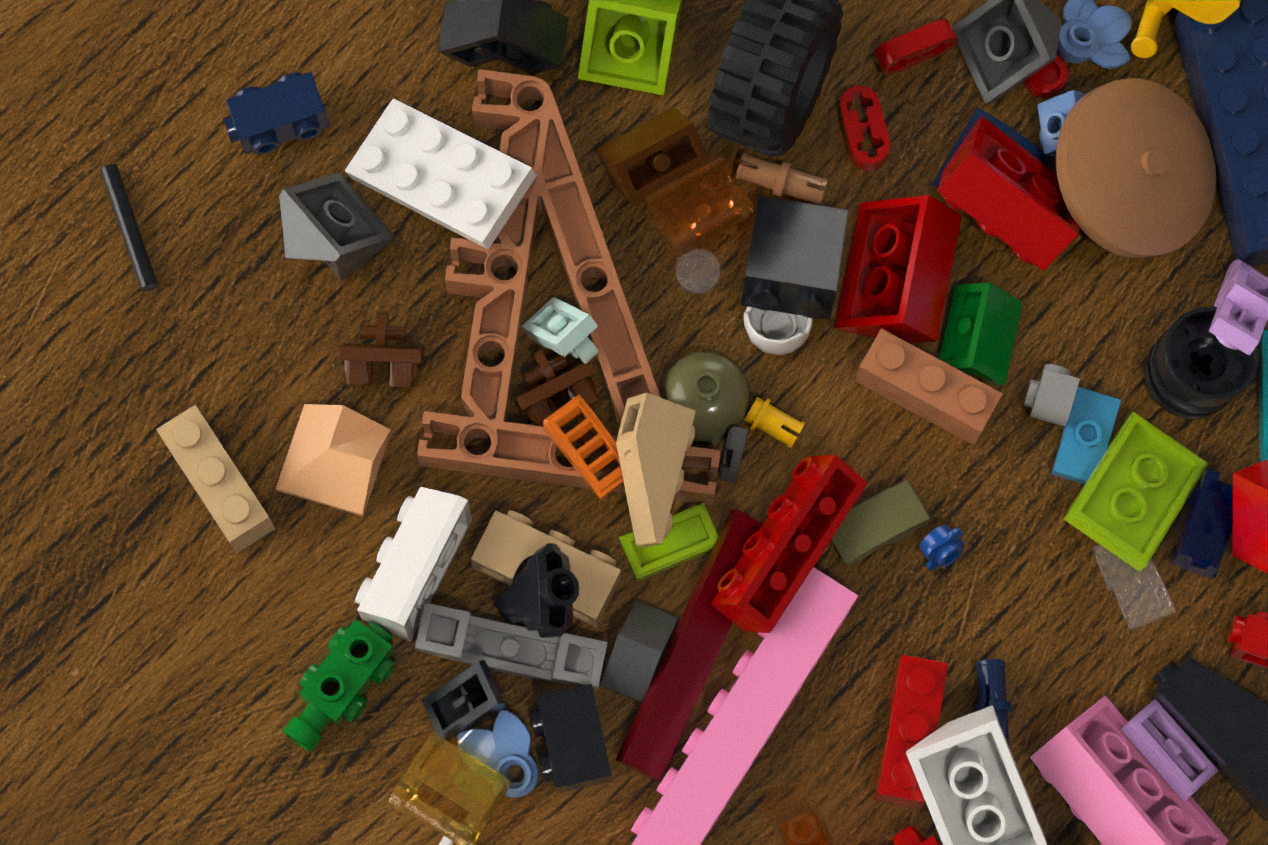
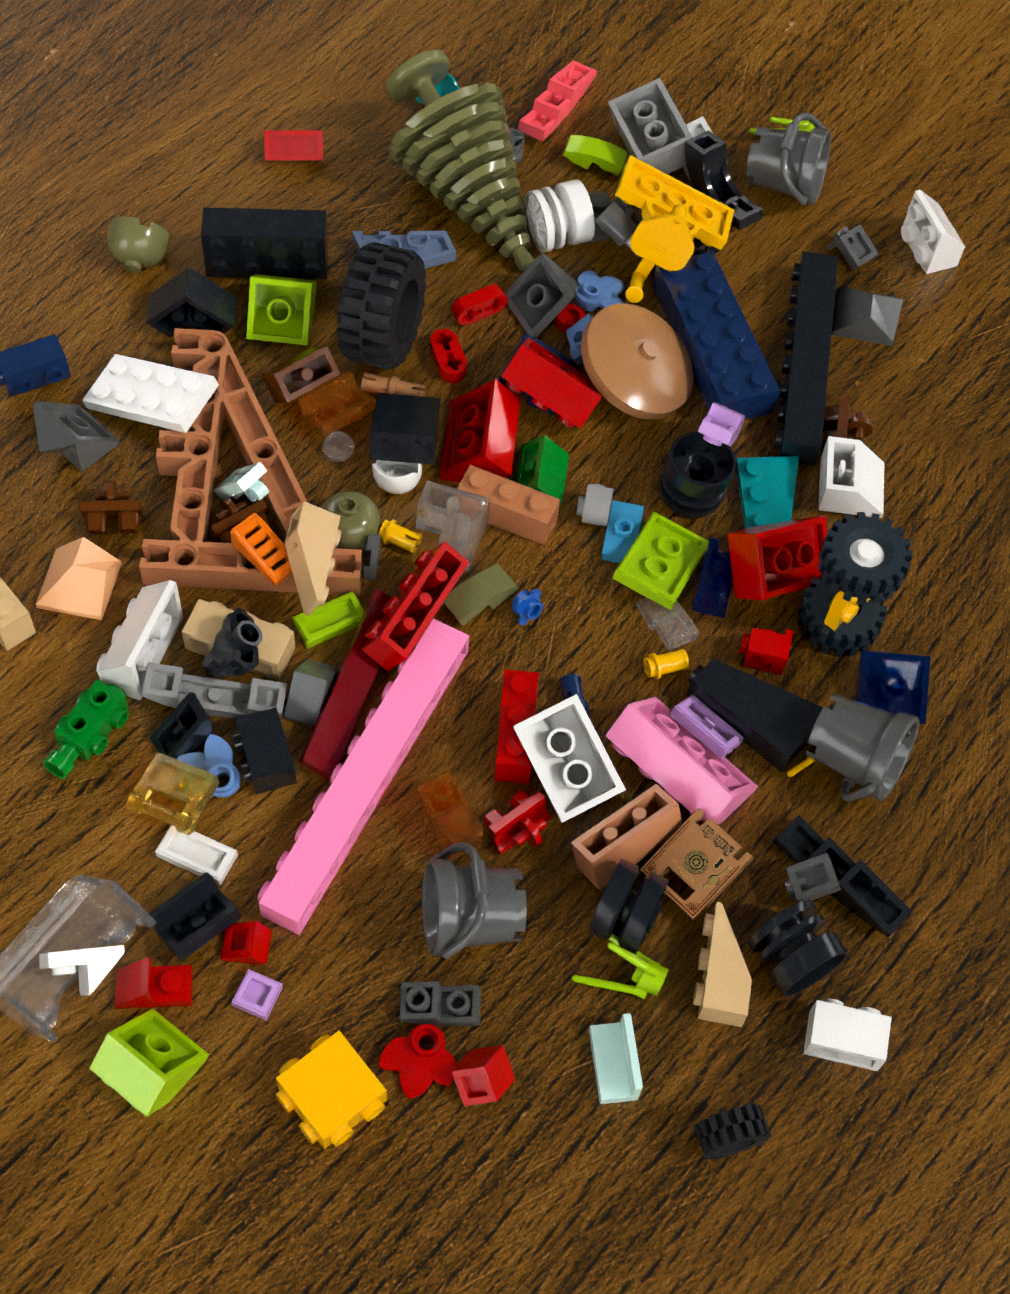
camera: 10 degrees left, 15 degrees down
(855, 402) = (455, 516): none -> clear brick
(1124, 649) = (665, 663): none -> yellow pin

